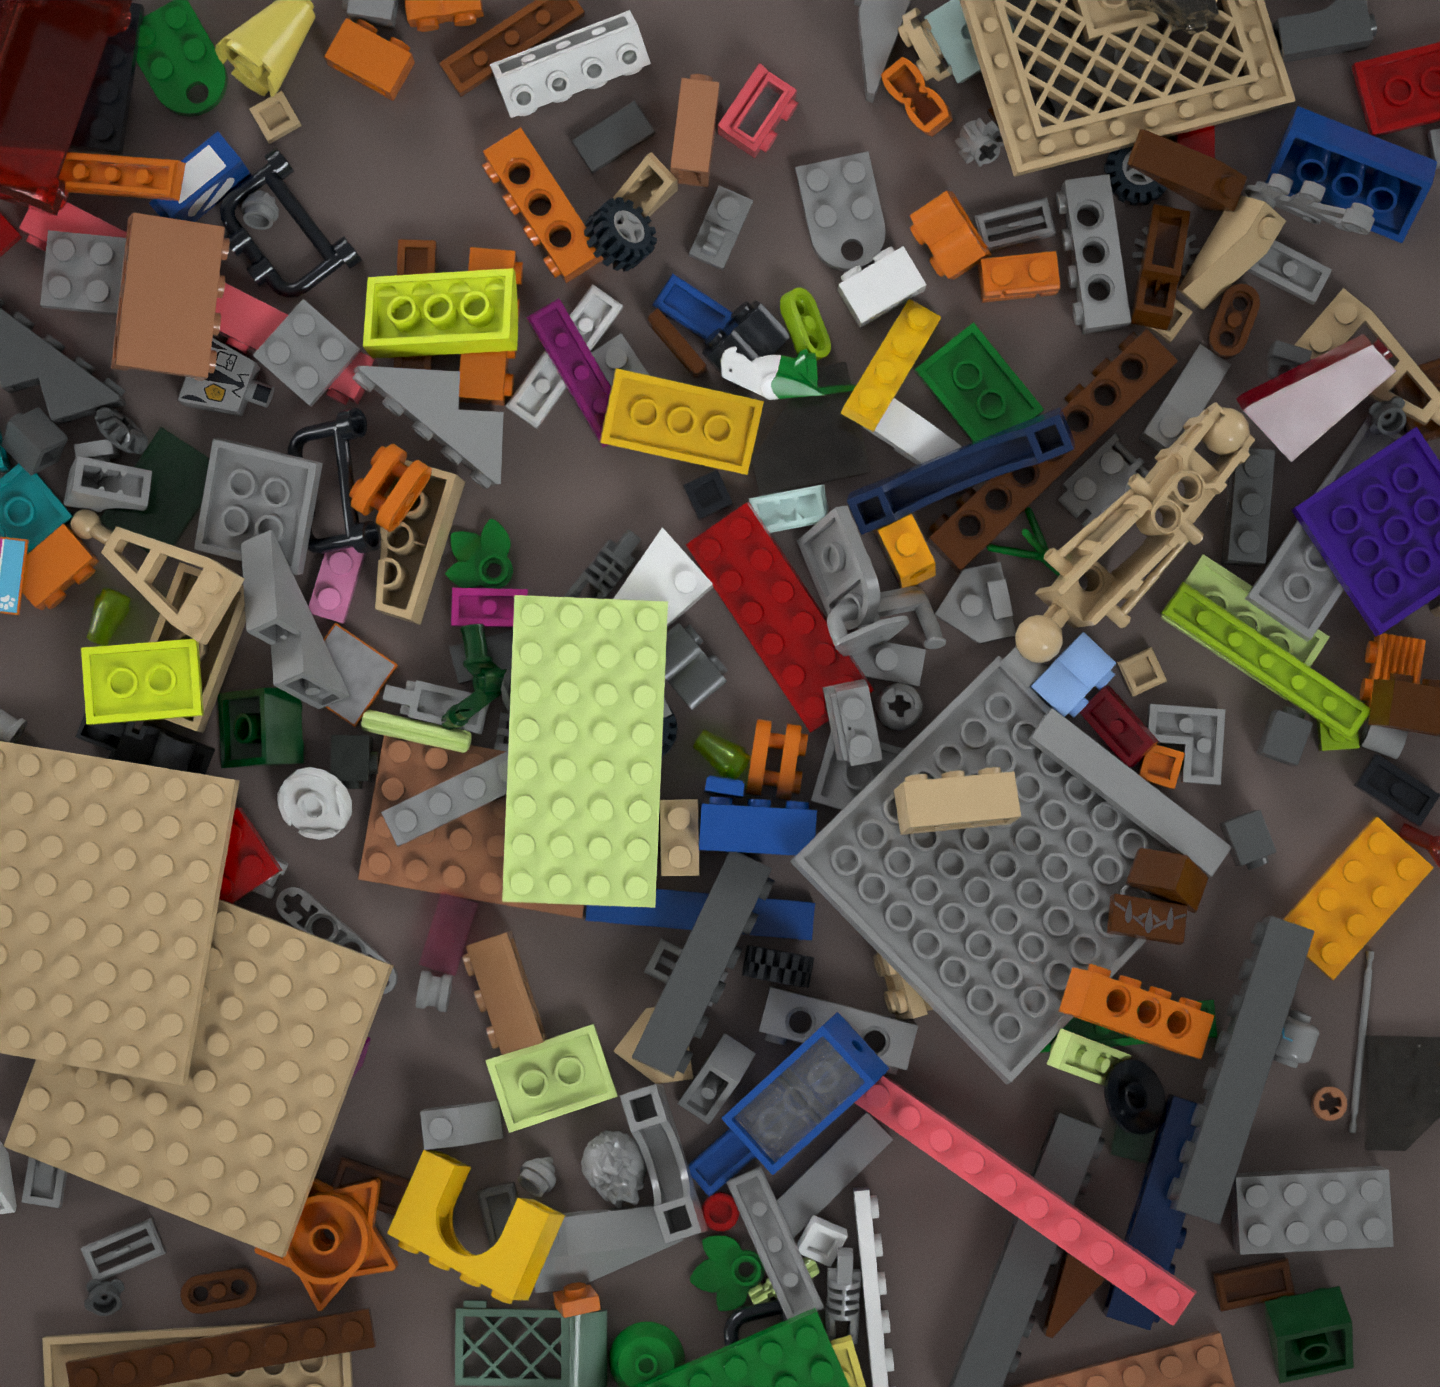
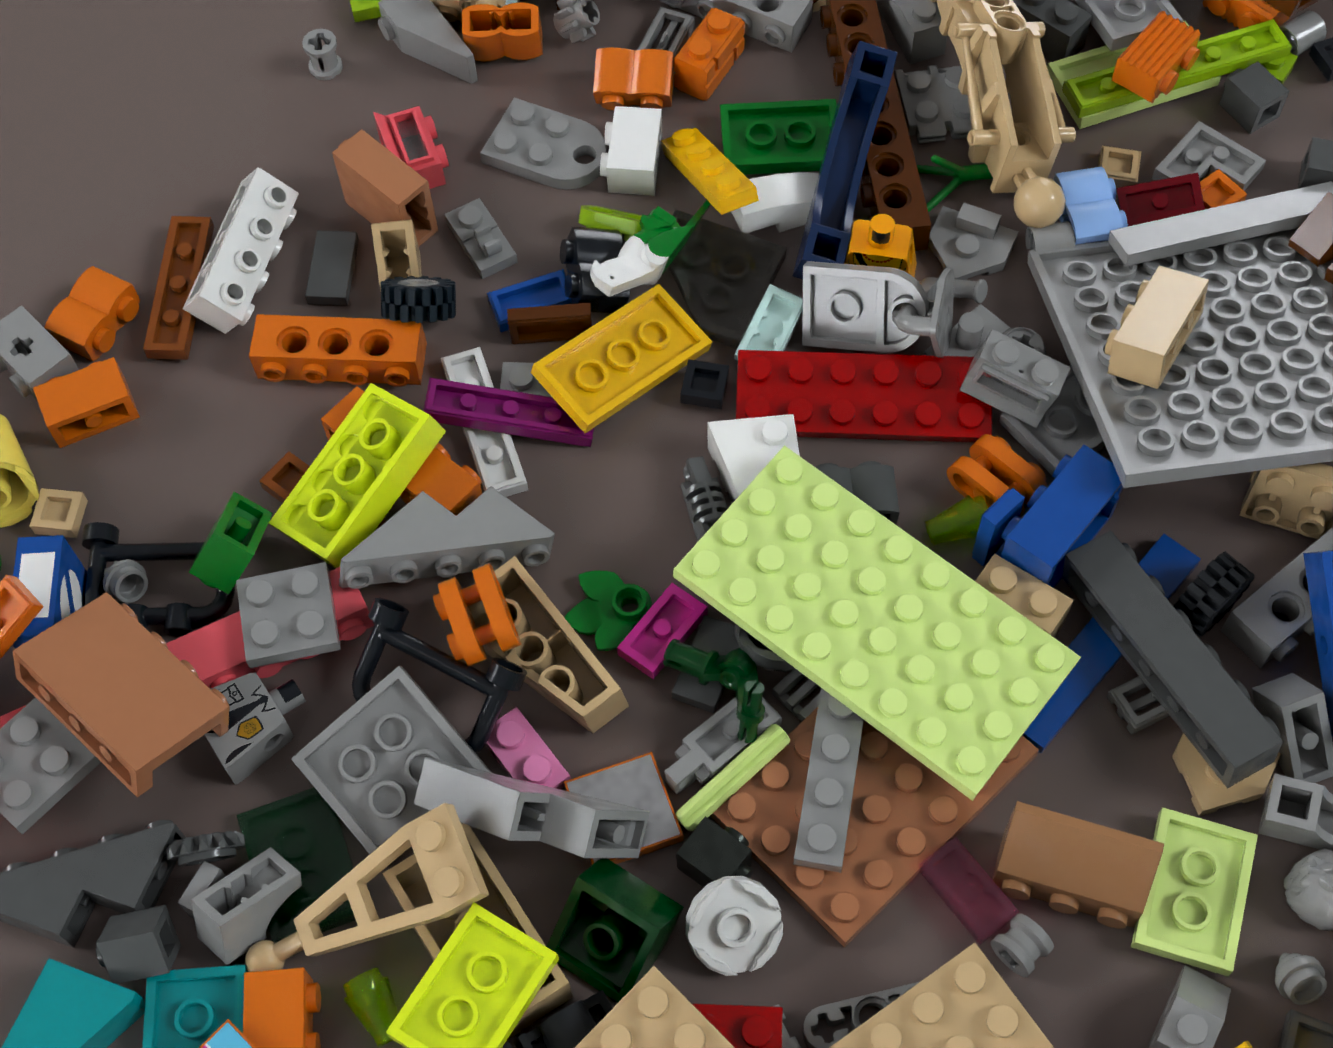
camera: 50 degrees left, 25 degrees down
(331, 268) = (231, 543): none -> green slope
(1245, 644) = (1157, 57): none -> orange brick

